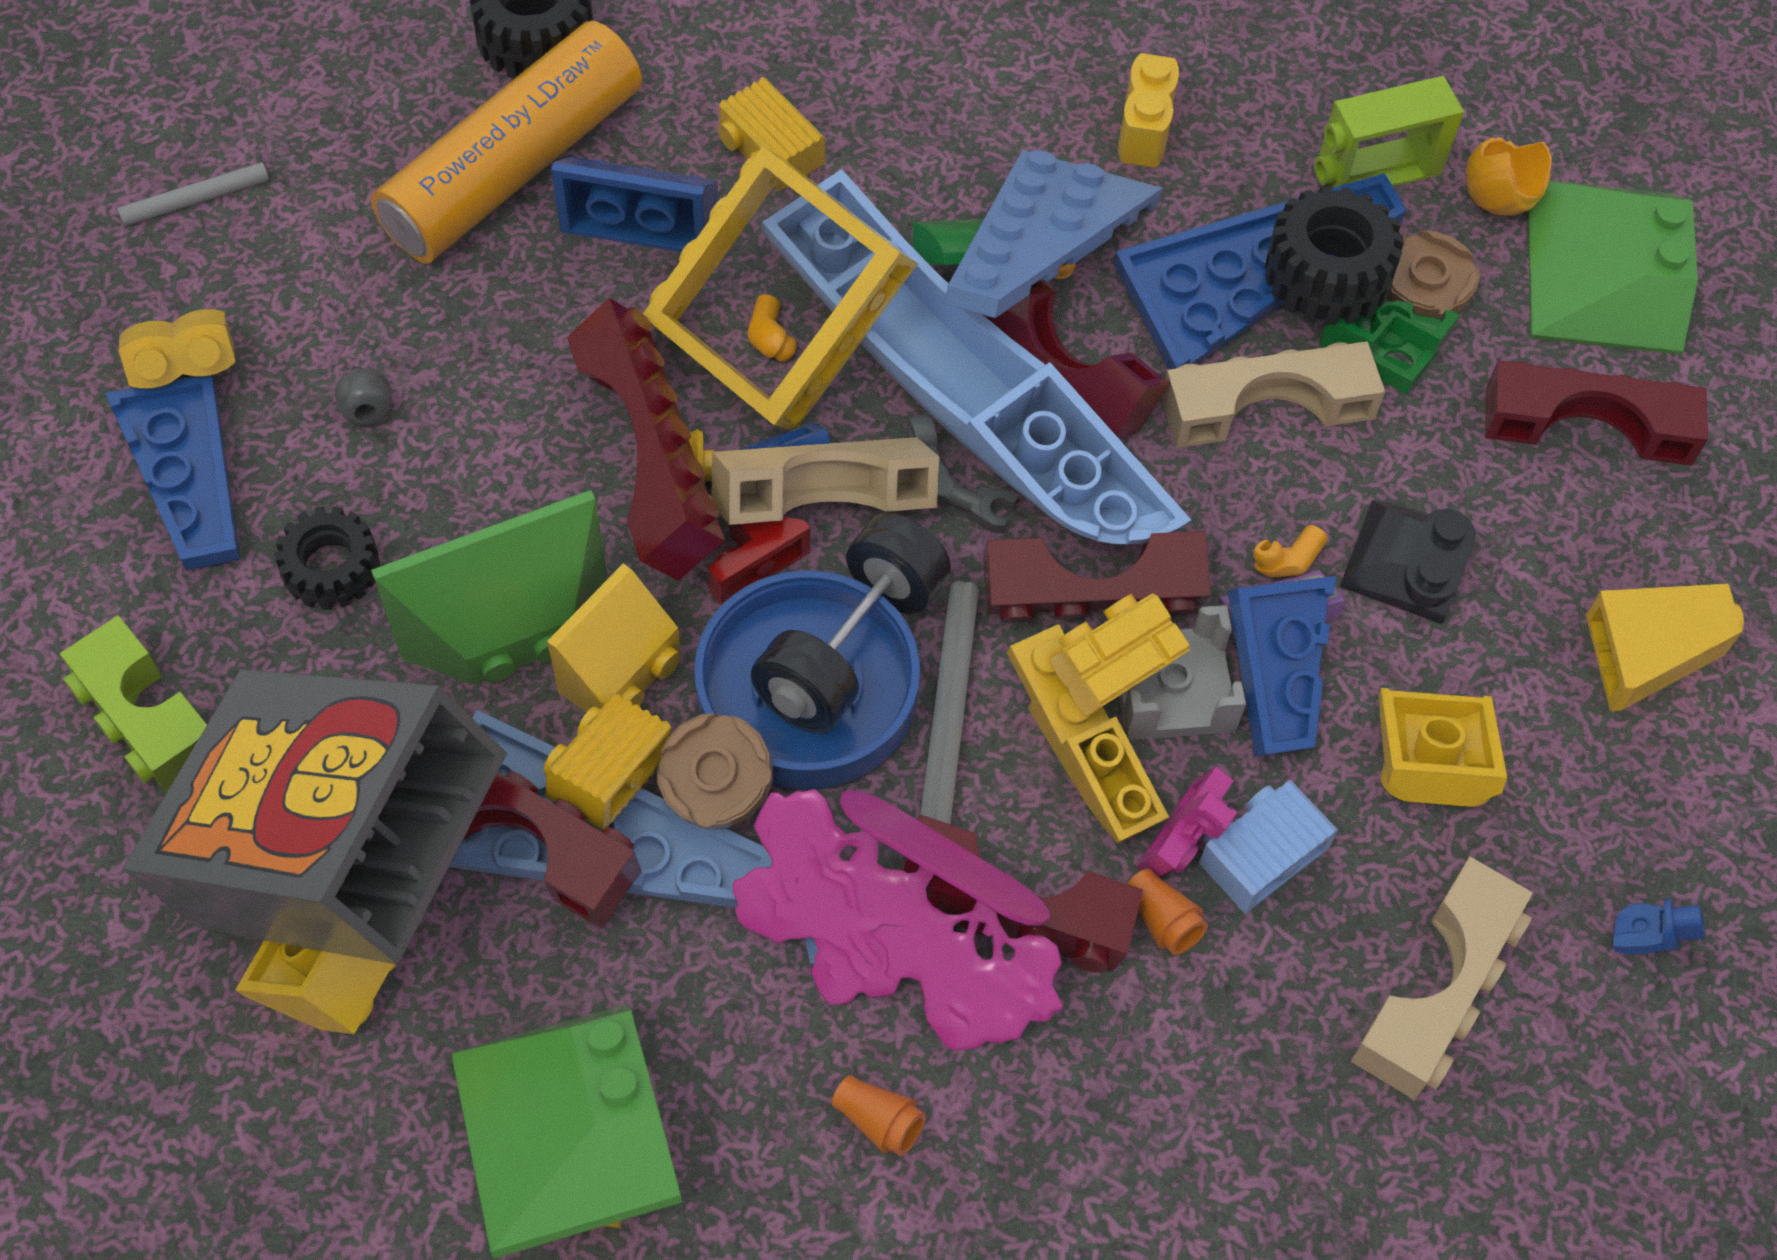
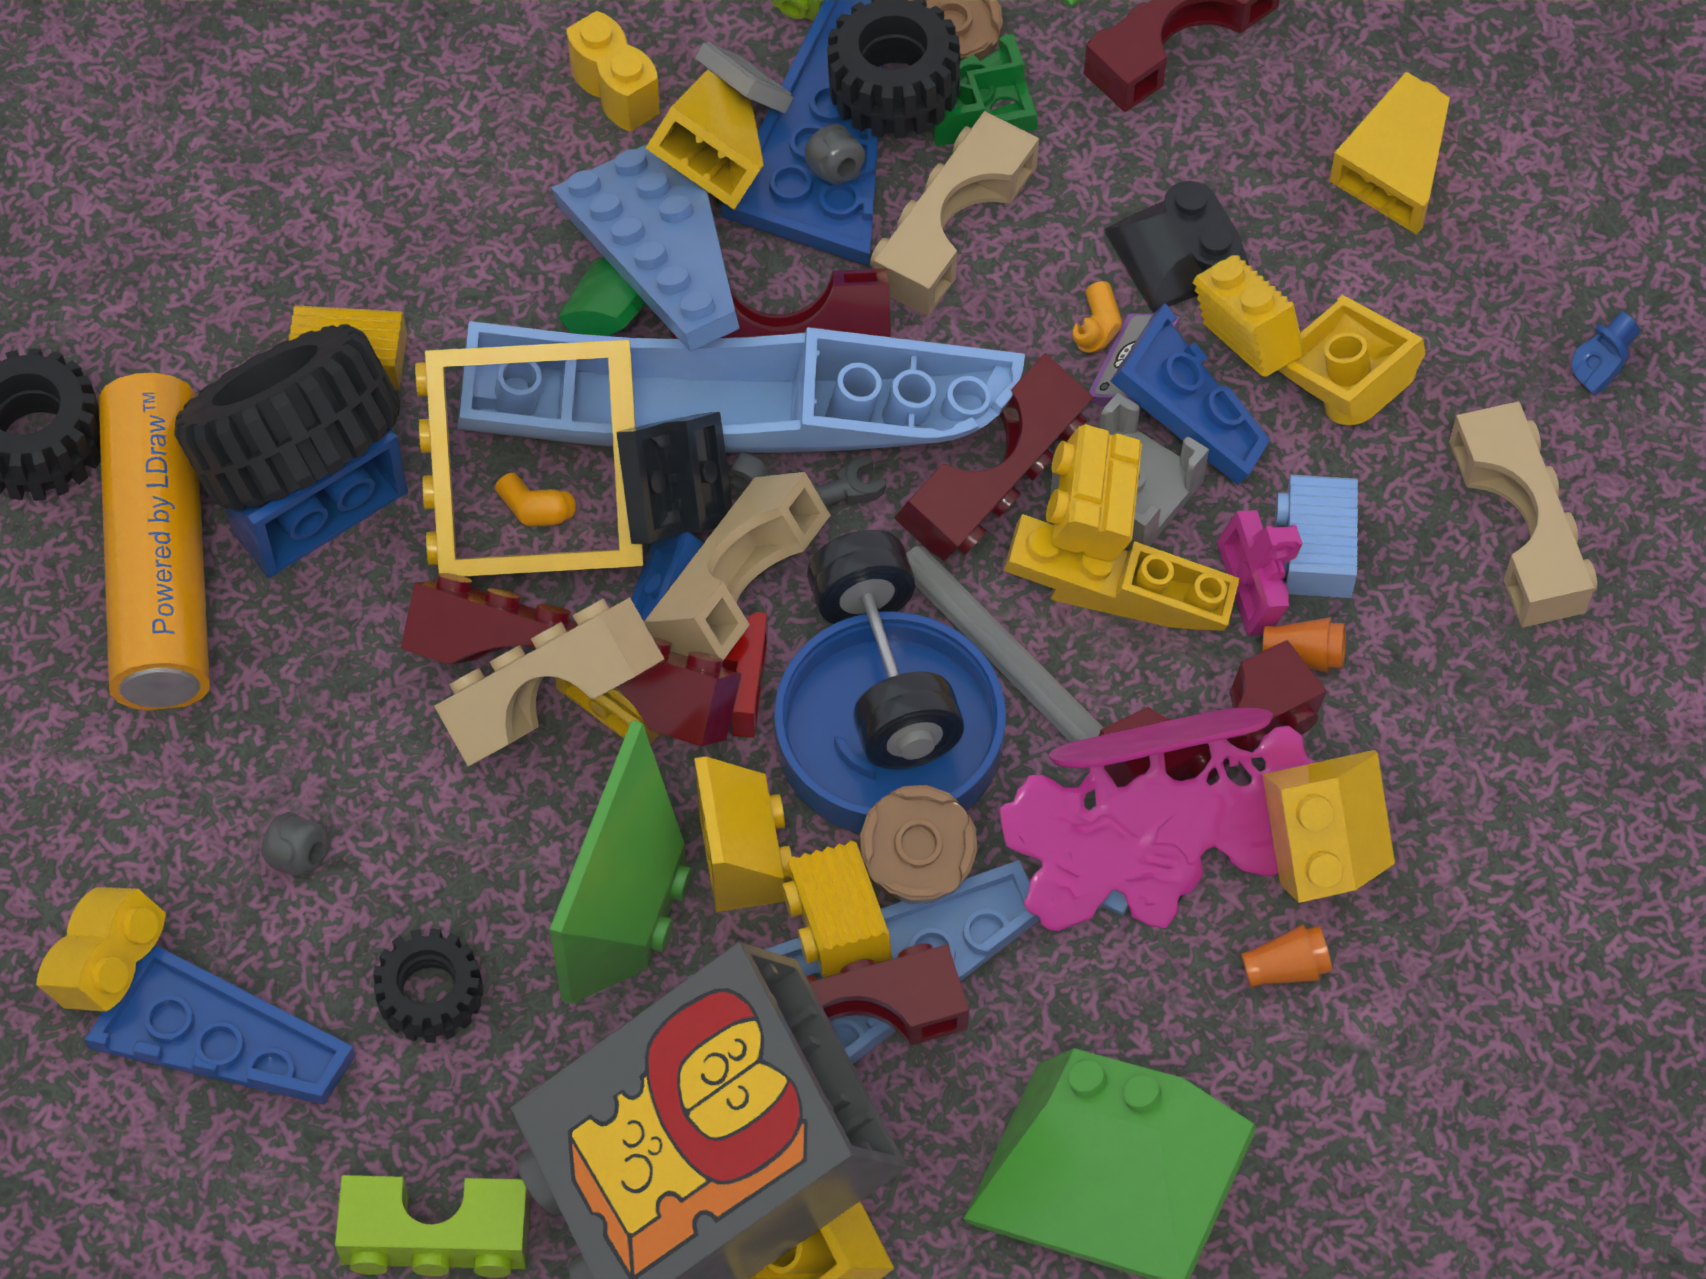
camera: 45 degrees left, 0 degrees up
(619, 422) = (594, 656): none -> tan arch
(655, 127) = (287, 417): none -> black tyre
(850, 380) = (674, 476): none -> black slope
(1013, 1050) = (1329, 825): none -> yellow slope
(1149, 192) = (711, 139): none -> yellow slope
(1224, 279) = (834, 154): none -> dark grey piece
(1227, 183) = (744, 77): none -> light grey tile
(1395, 644) = (1249, 315): none -> yellow brick

